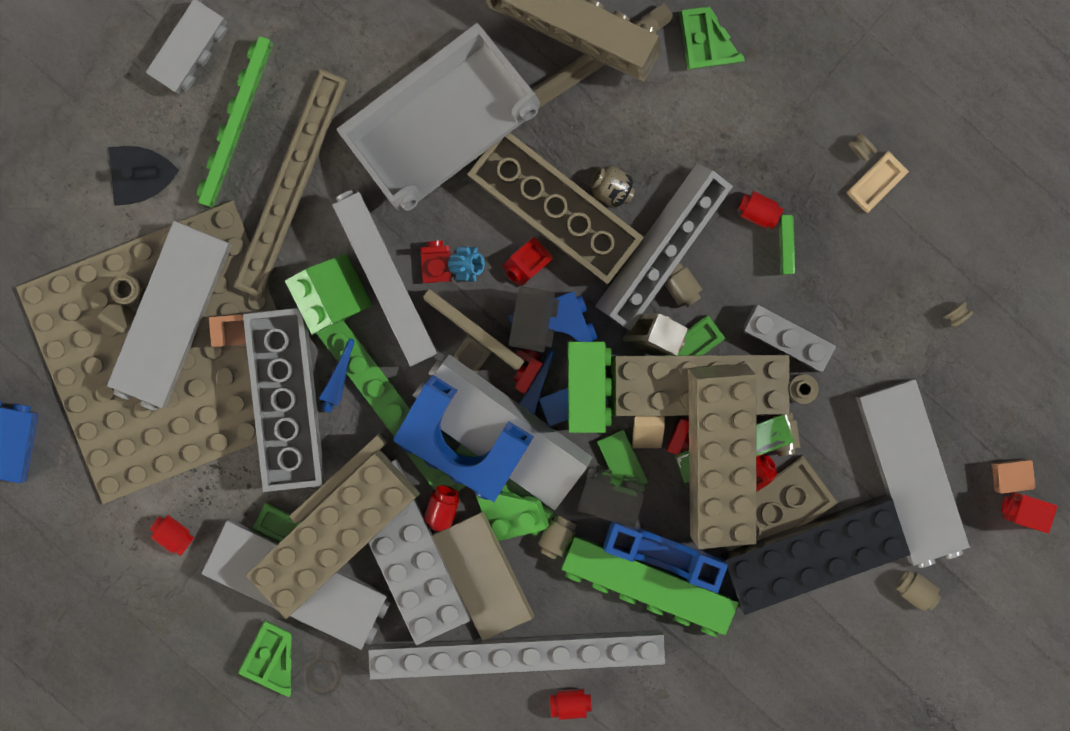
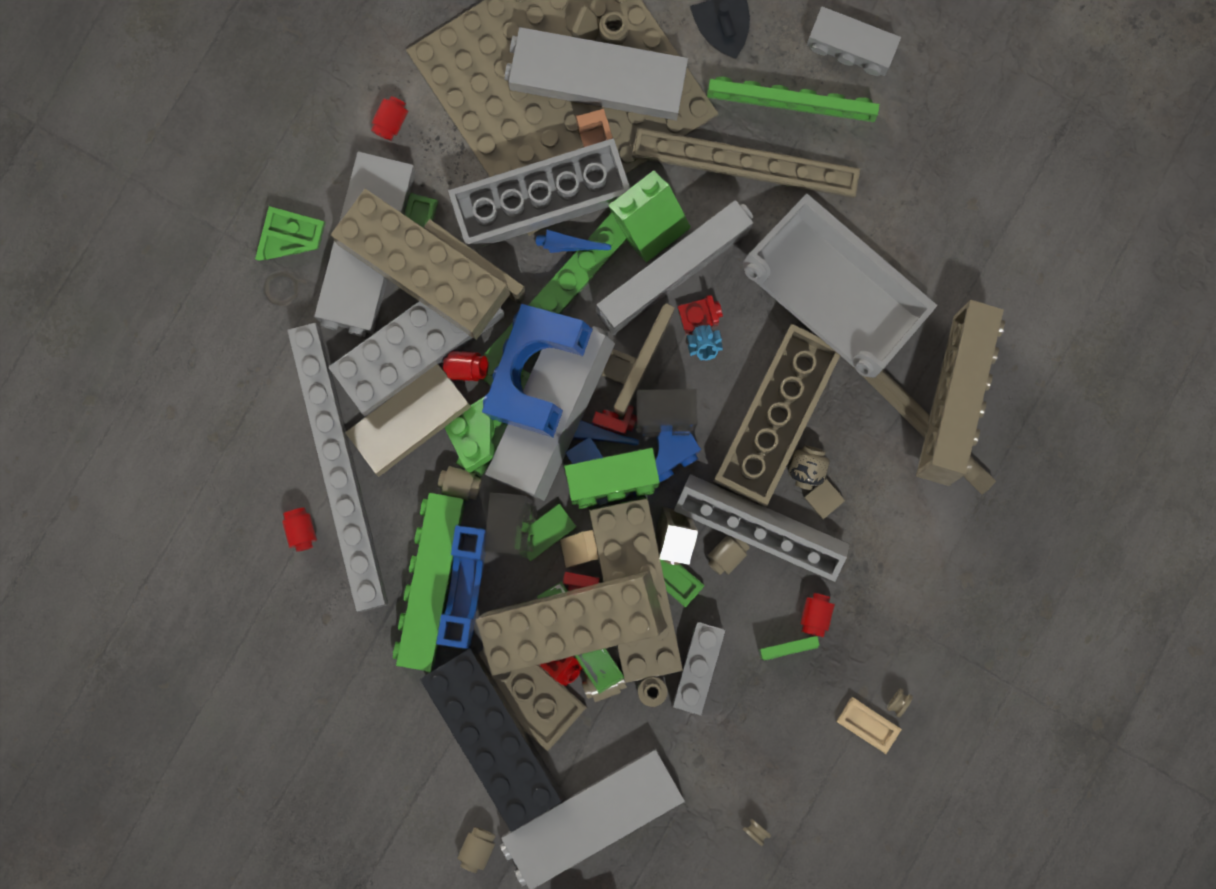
camera: 75 degrees right, 5 degrees down
(526, 262) = (719, 400): red bracket -> none
(646, 177) = (824, 499): none -> dark tan tile
(705, 40) = (968, 529): bright green wing -> none

